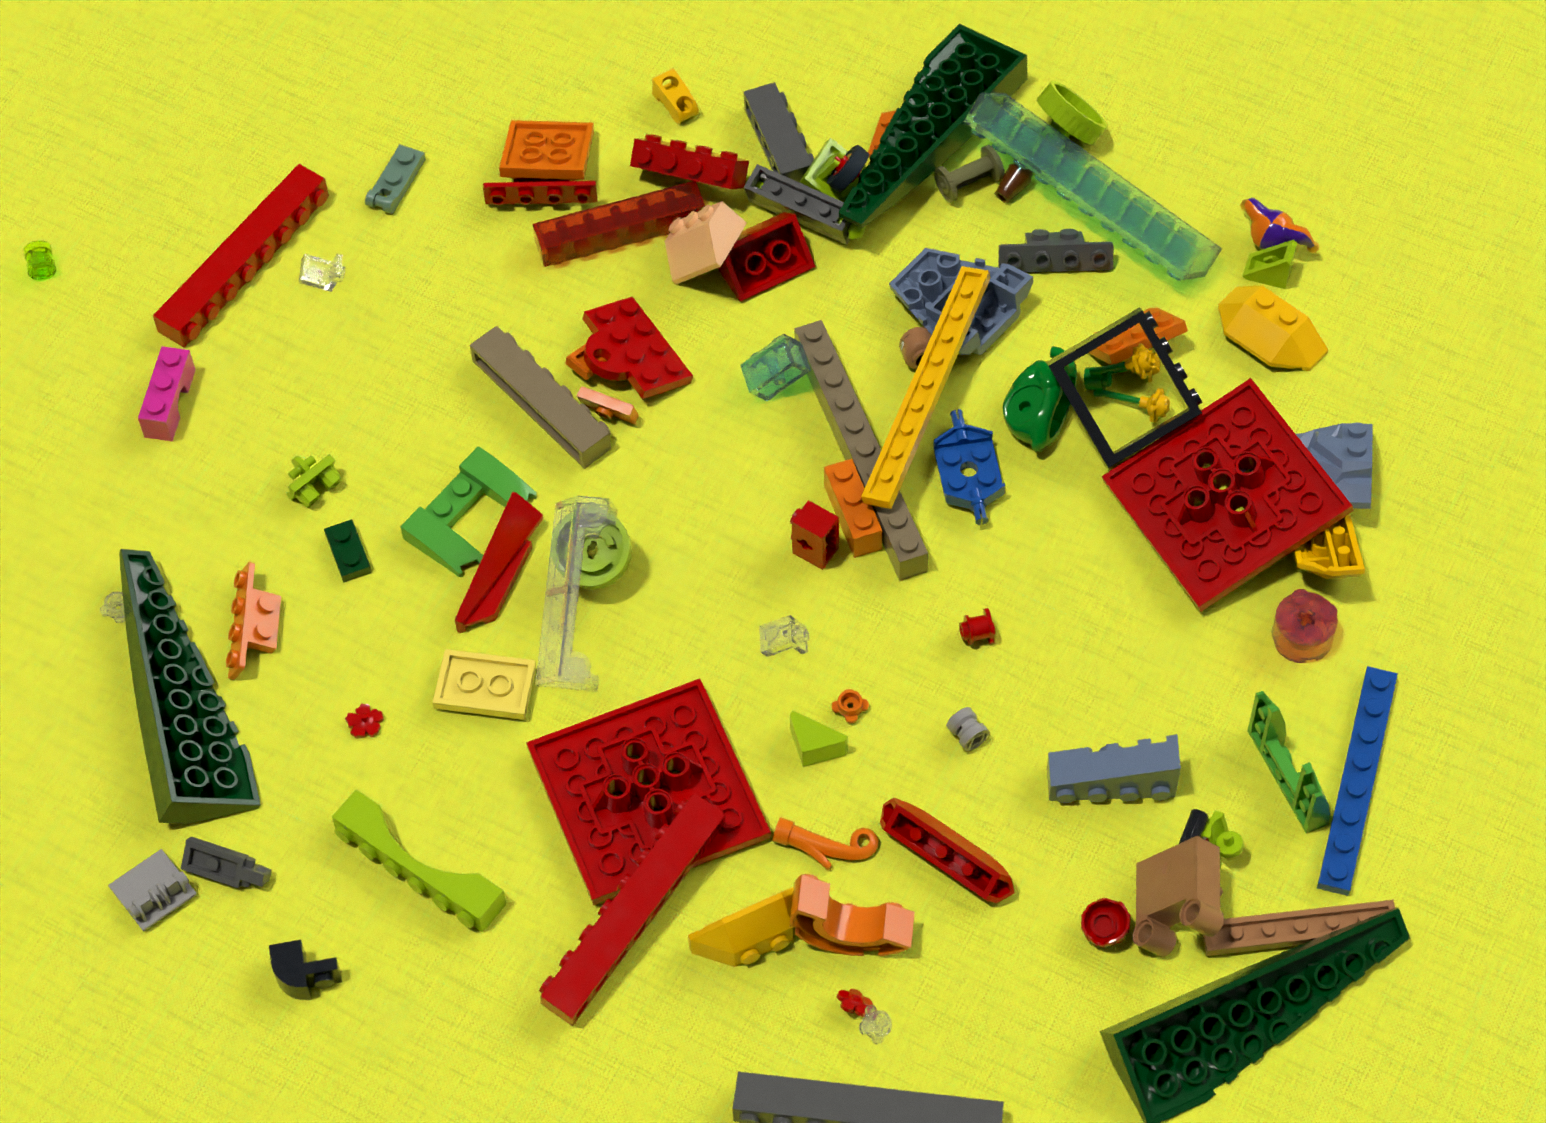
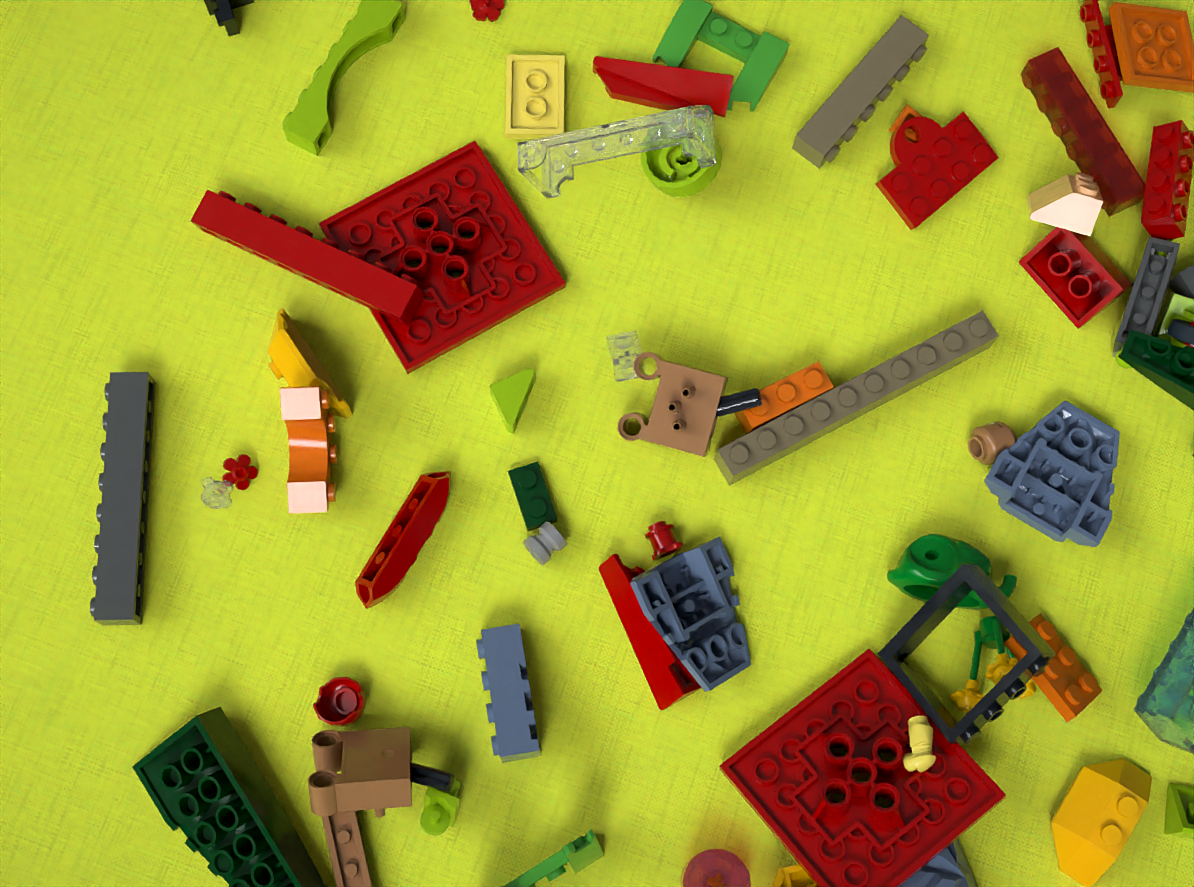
camera: 75 degrees right, 15 degrees up
(607, 406) = (861, 153): orange plate -> none
(775, 367) = (933, 300): clear light blue brick -> none
(814, 534) = (740, 361): red brick -> none
(818, 846) = (401, 417): orange plant -> none
(850, 697) = (559, 419): orange plate -> none
(852, 585) = (685, 406): none -> medium nougat piece
(916, 738) = (532, 496): none -> dark green plate
(925, 388) = (931, 447): yellow plate -> none
(968, 448) = (873, 494): blue plate -> none
(1050, 609) = (695, 612): none -> sand blue wedge
(1057, 252) = (1150, 570): dark grey bracket -> none
(1065, 651) = (661, 666): none -> red wedge
(1195, 435) = (921, 744): none -> light yellow arm

